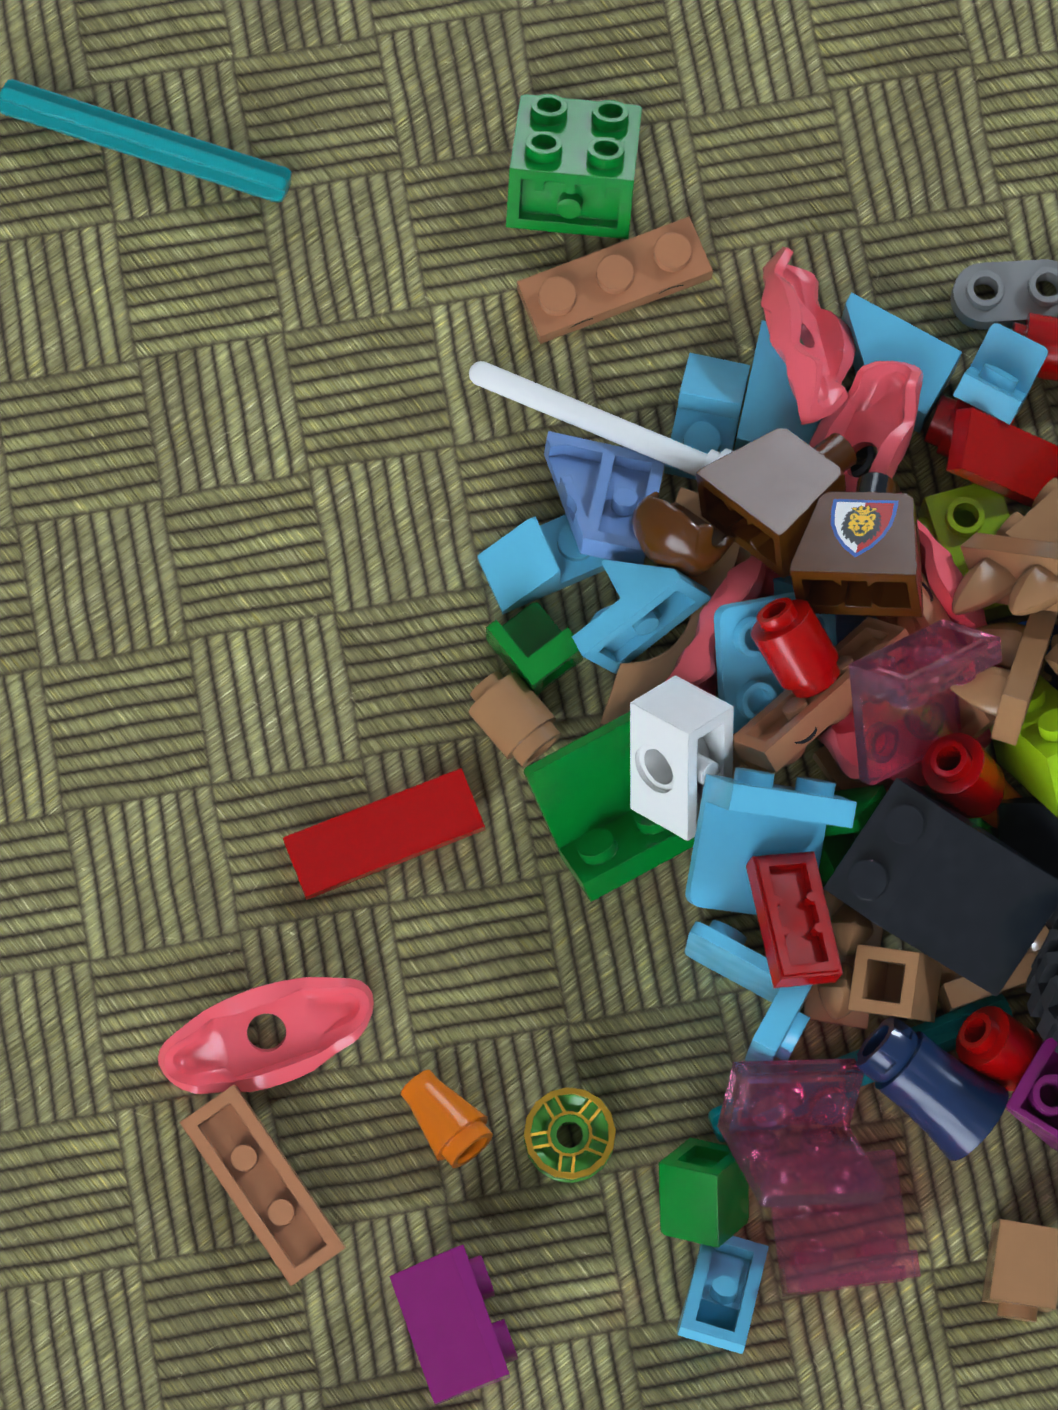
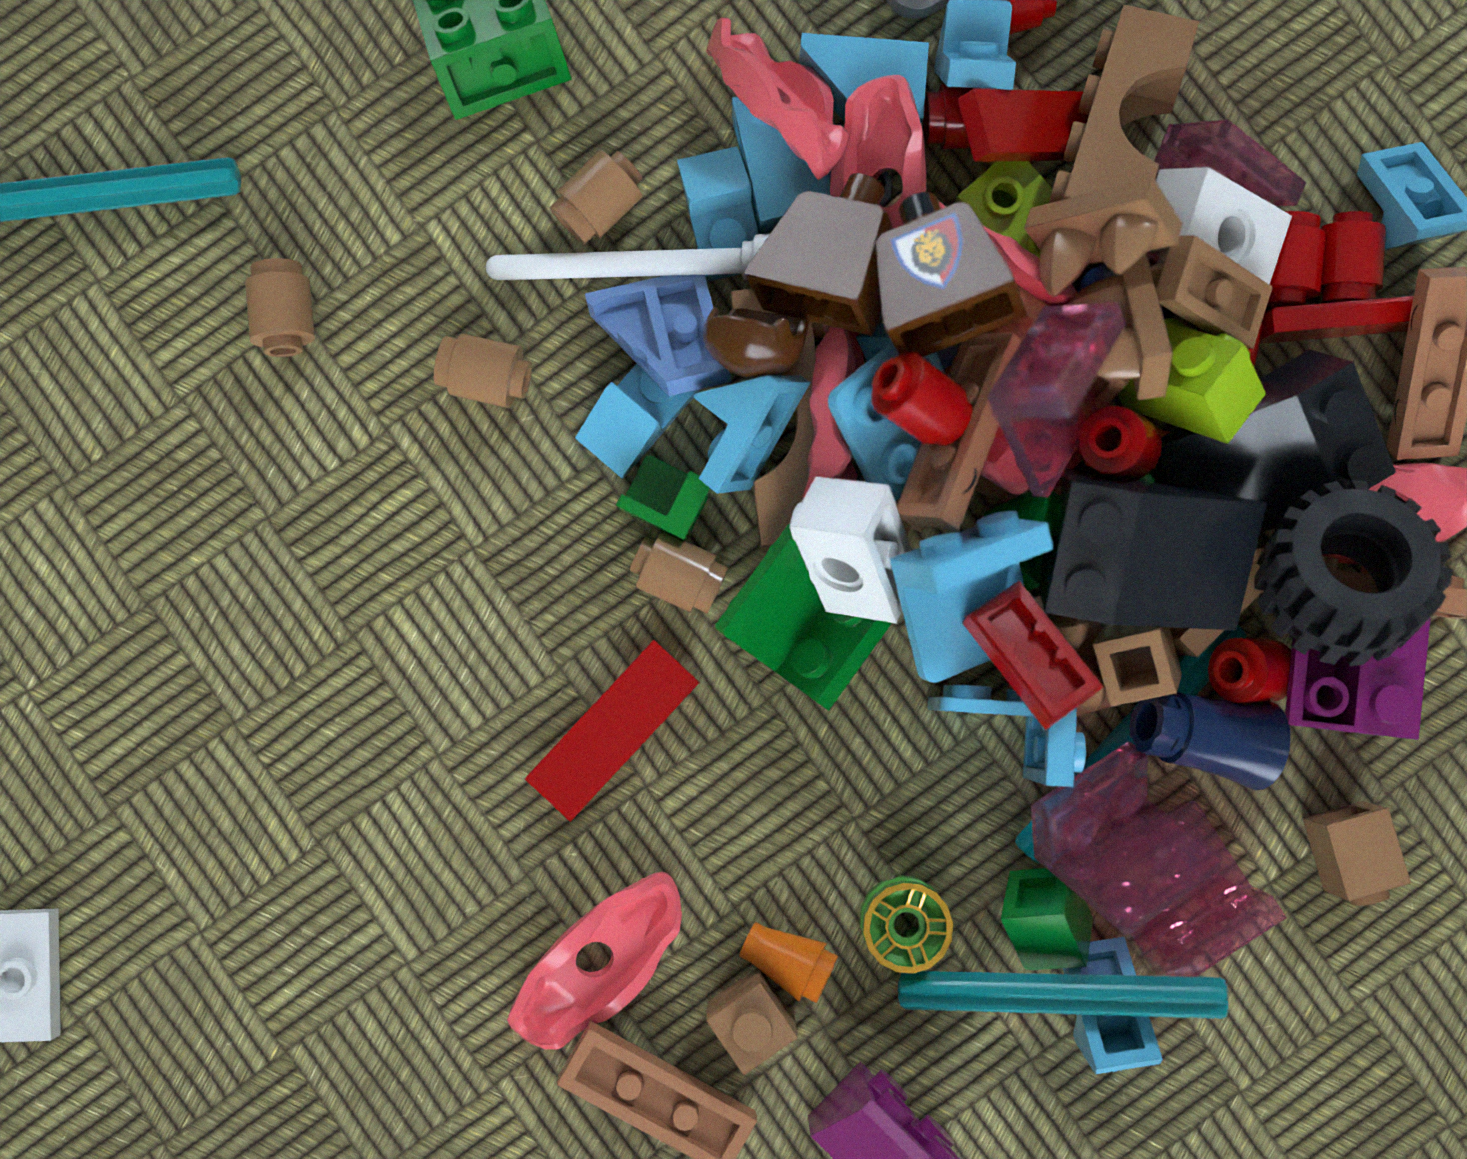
camera: 25 degrees left, 10 degrees up
(268, 318) = (279, 307): none -> medium nougat brick
(384, 1151) = (751, 1021): none -> medium nougat brick
(423, 456) = (482, 370): none -> medium nougat brick
(601, 351) = (597, 196): none -> medium nougat brick
(614, 280) = (577, 122): nougat plate -> none
(682, 1254) = (1065, 994): none -> teal axle

